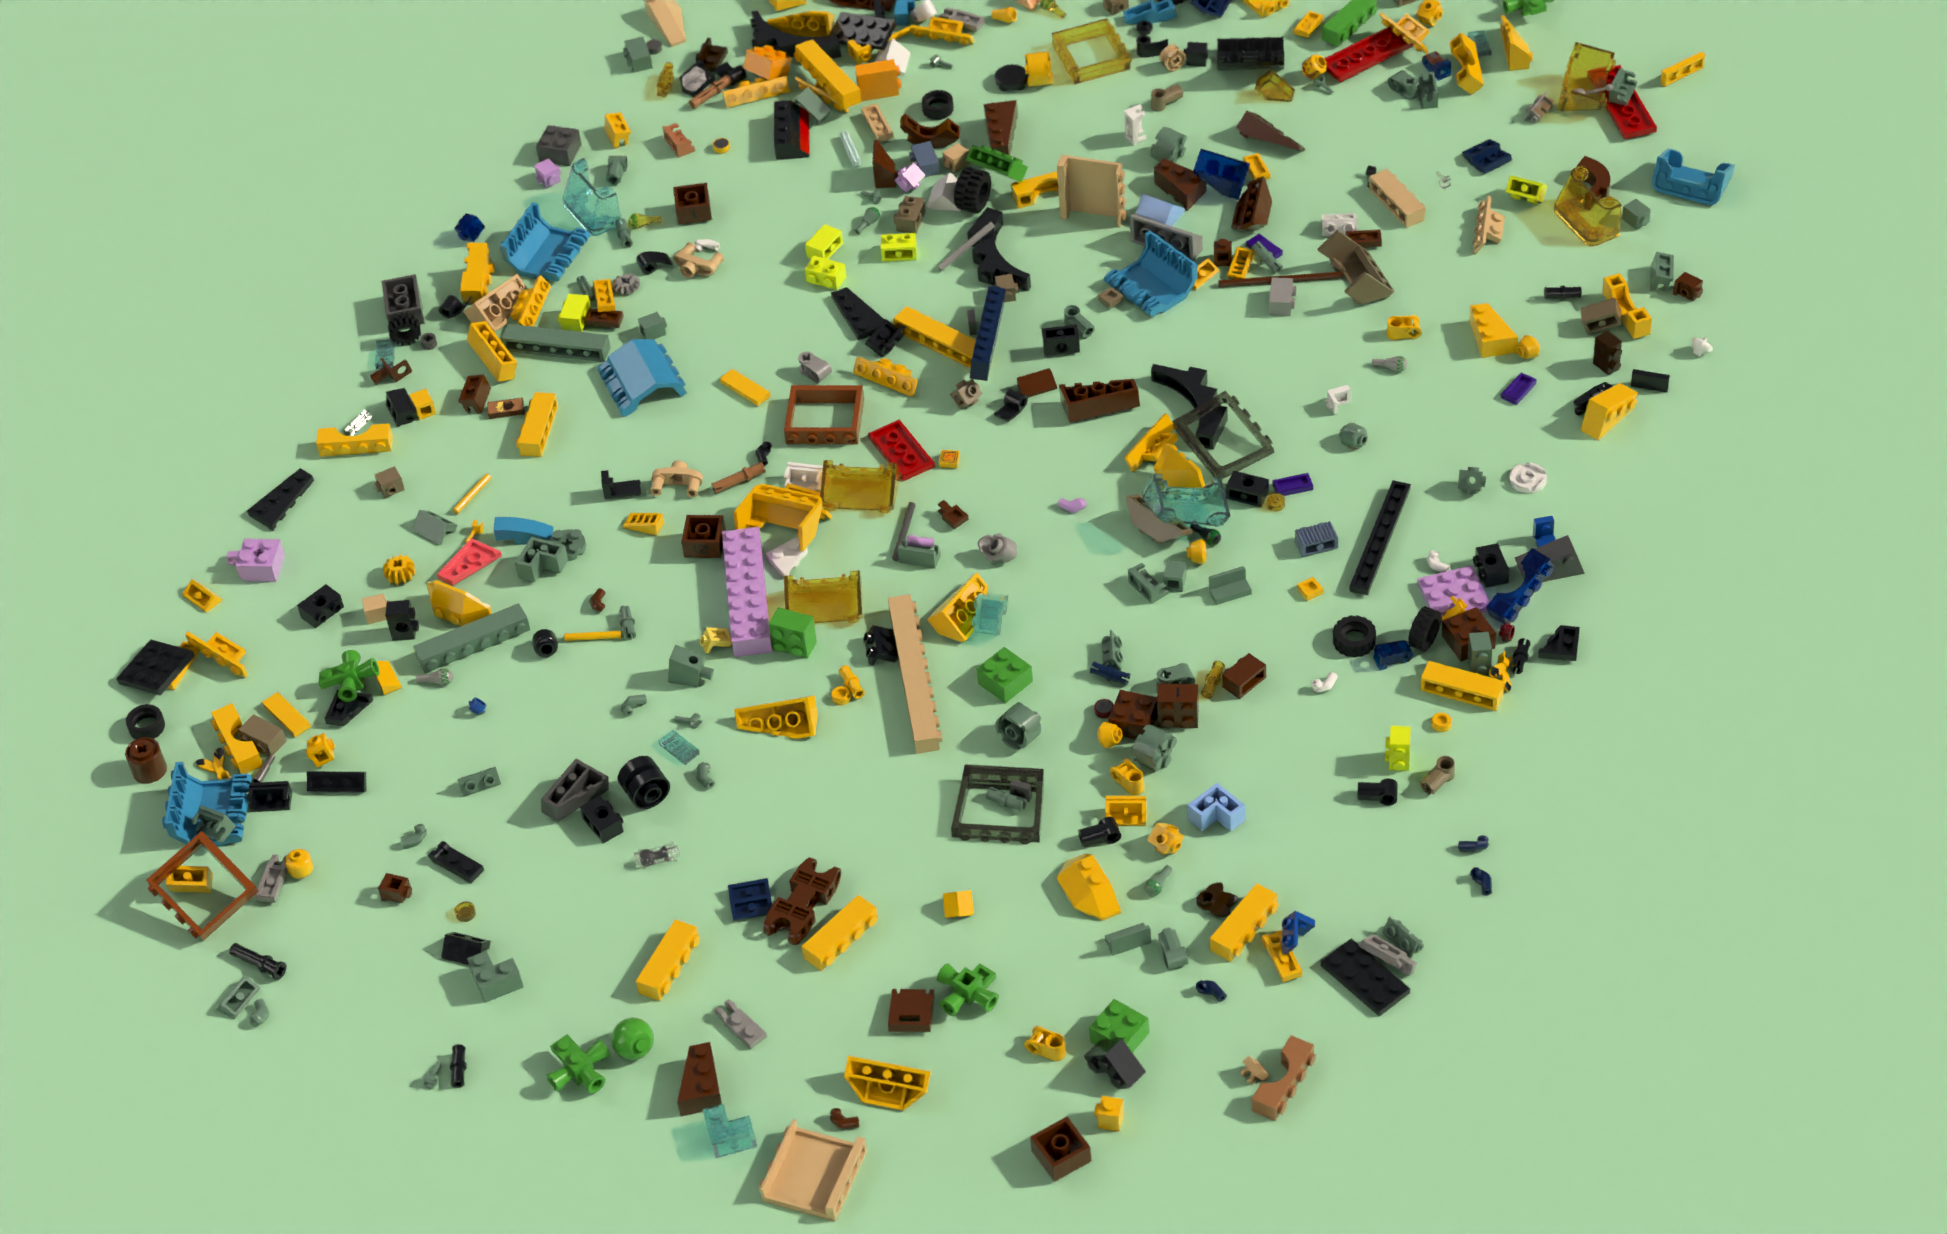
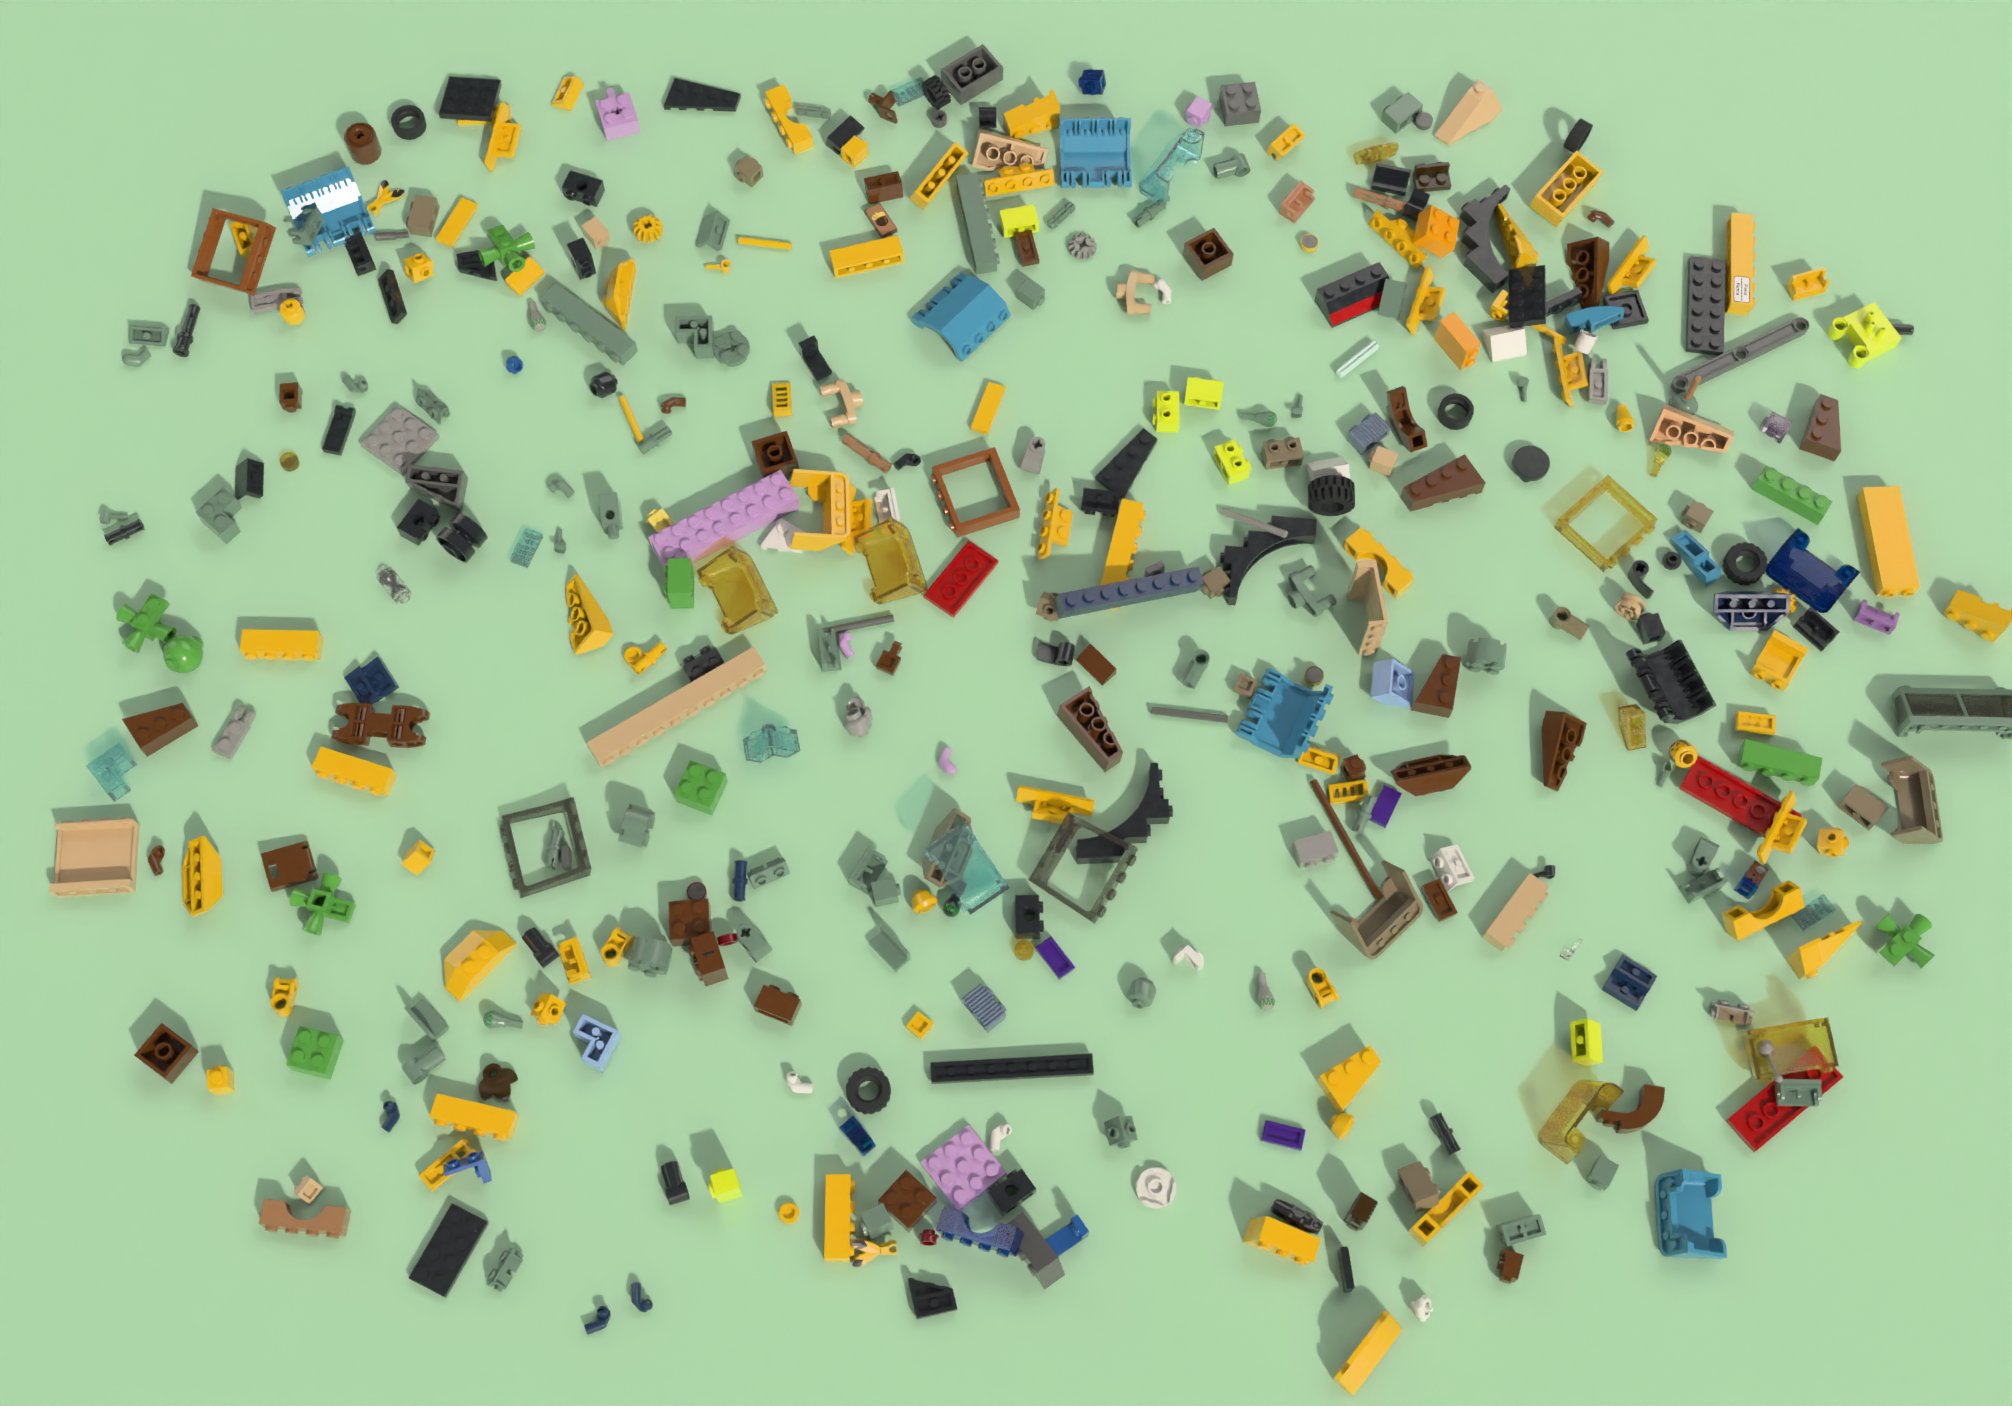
camera: 60 degrees right, 20 degrees up
(243, 753) = (426, 183): yellow arch -> none
(468, 561) = (679, 278): coral wing -> none
(499, 817) = (399, 440): none -> light grey plate
(521, 529) = (730, 304): dark azure slope -> none
(604, 295) = (1054, 235): yellow tile -> none
(638, 220) = (1170, 218): clear yellow piece -> none
(648, 261) = (1119, 252): black panel -> none
(701, 775) = (497, 581): sand green arm -> none
(827, 74) = (1439, 292): yellow brick -> none
(877, 123) = (1403, 367): tan plate -> none
(883, 168) = (1332, 399): reddish brown slope -> none
(909, 177) = (1331, 430): brick -> none
(949, 458) = (965, 626): yellow tile -> none
(955, 615) = (758, 710): yellow wedge -> none
(997, 163) = (1379, 502): bright green brick -> none
(1038, 68) = (1547, 484): yellow brick -> none
(1048, 240) = (1302, 596): none -> sand green connector
(1060, 340) = (1158, 663): black brick -> none
(1109, 735) = (657, 909): yellow cone -> none
(1116, 340) = (1189, 714): none -> dark grey bar
(1117, 1061) = (271, 1063): black brick -> none
(1124, 256) = (1314, 676): none -> tile
(1133, 124) = (1506, 608): white hinge -> none
(1177, 469) = (1011, 840): yellow wedge -> none
(1183, 241) = (1352, 704): light grey slope -> none
(1212, 679) = (765, 977): clear yellow pin -> none
(1221, 172) = (1464, 721): clear blue slope -> none
(1257, 166) = (1501, 753): yellow plate -> none
(1388, 953) = (478, 1261): light grey hinge -> none
(1424, 628) = (890, 1156): black tyre -> none
(1440, 774) = (711, 1233): dark tan piece -> none
(1459, 608) = (931, 1180): yellow bracket -> none
(1488, 225) = (1515, 1022): tan bracket -> none
(1520, 656) = (900, 1261): black pin -> none
(1682, 69) = (1871, 1149): yellow tile -> none
(1729, 384) = (1368, 1353): none -> yellow windscreen

